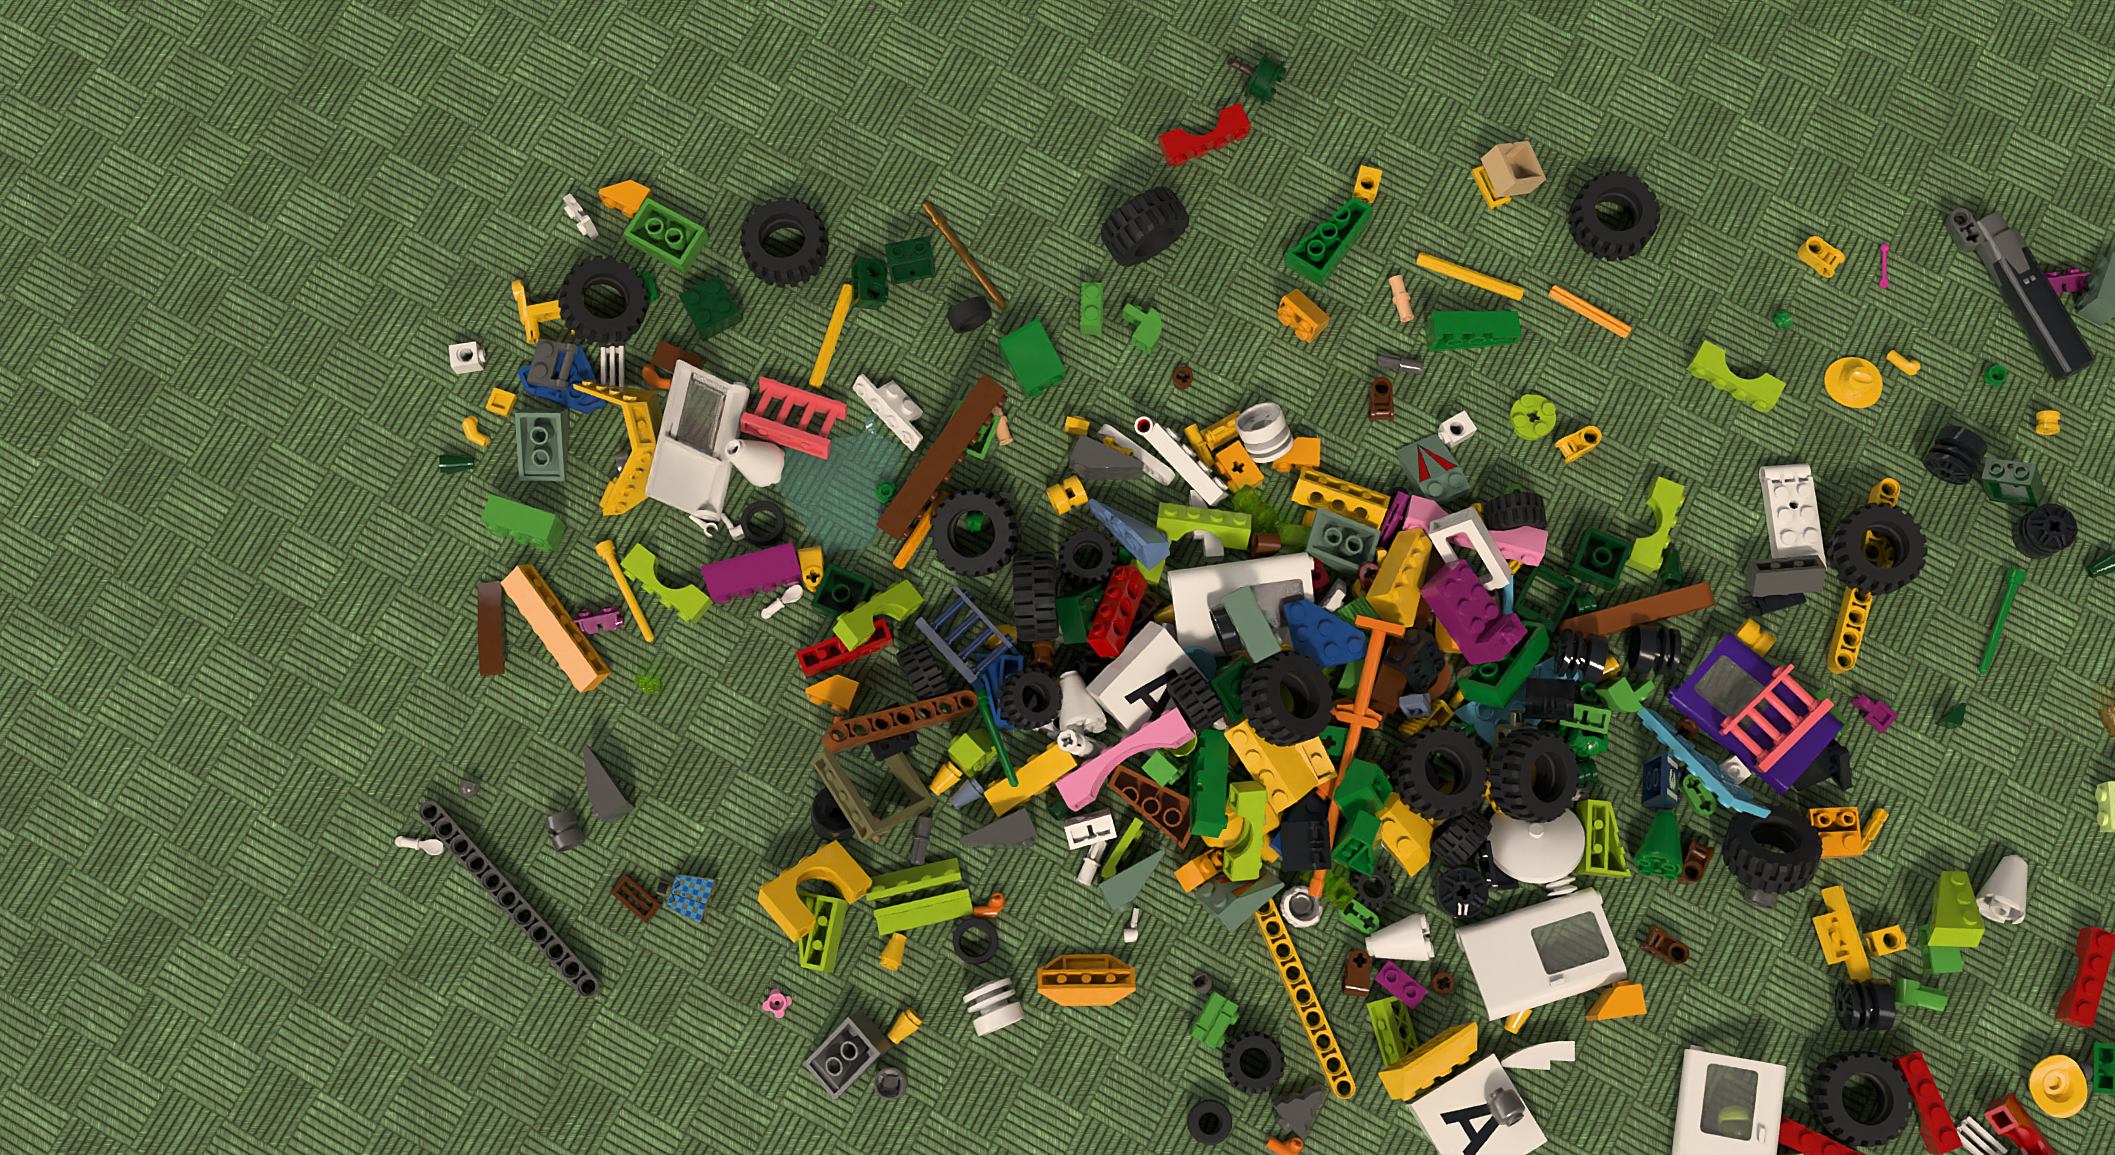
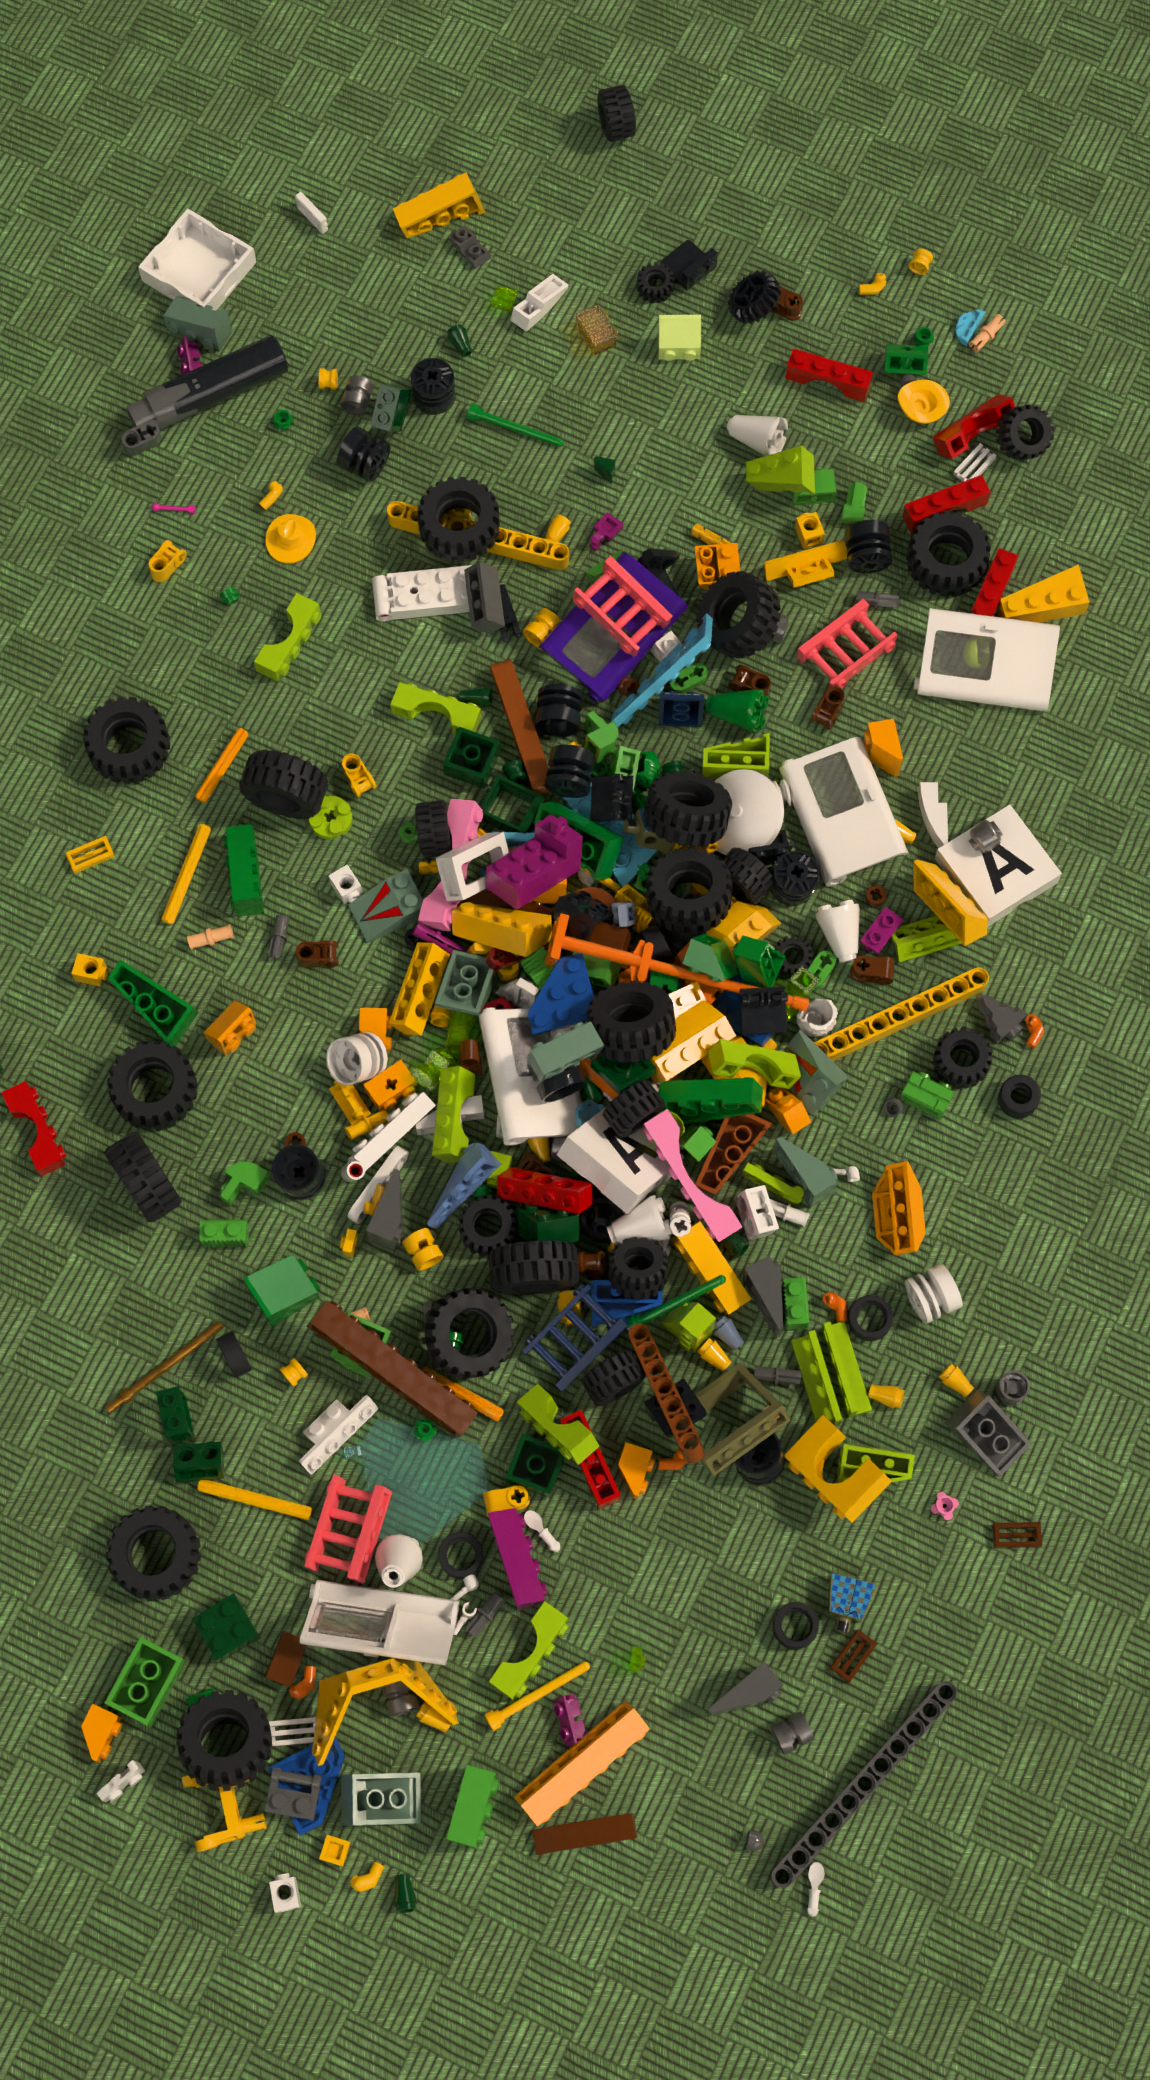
camera: 90 degrees left, 5 degrees down
(657, 828) = (795, 1607): none -> black tyre
(705, 544) = (484, 1615): none -> dark grey axle
(753, 1057) = (1026, 1544): none -> reddish brown tile
(950, 371) = (293, 1372): none -> yellow wheel
(993, 863) = (795, 1304): none -> bright green brick
(1149, 365) = (298, 1159): none -> black wheel
(1253, 216) = (143, 1059): none -> black tyre
(1383, 740) = (660, 948): none -> black tyre
(1513, 168) = (77, 830): tan piece -> none
(1562, 363) = (283, 784): none -> black tyre
(1764, 969) = (842, 626): none -> coral fence
(1801, 1012) = (878, 599): none -> dark grey axle
(1874, 660) = (558, 528): none -> yellow cone
(2025, 449) = (356, 395): none -> flat silver wheel

